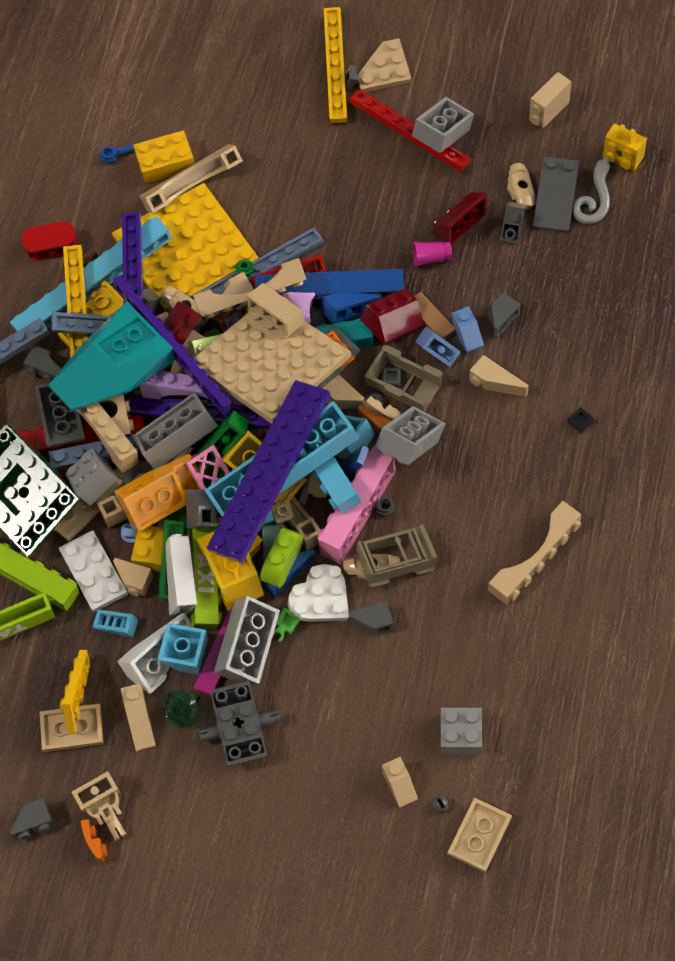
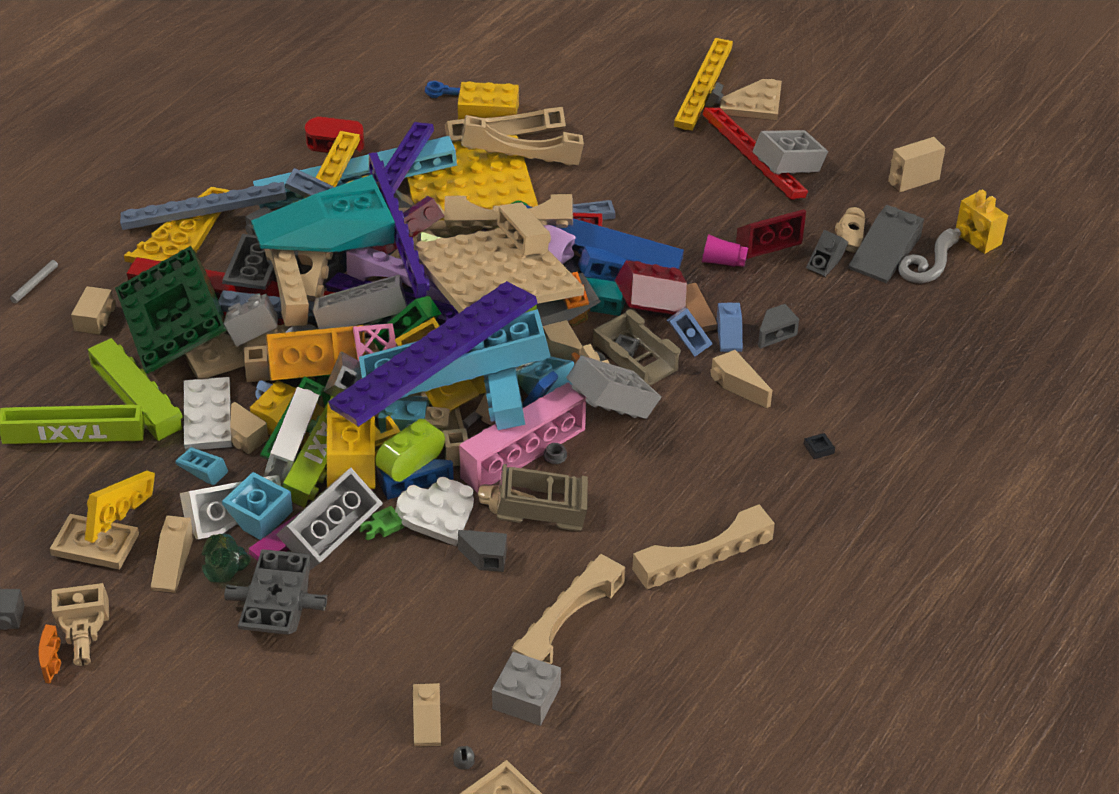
camera: 15 degrees right, 20 degrees down
(251, 188) = (559, 149): none -> tan arch
(472, 612) = (599, 580): none -> tan arch

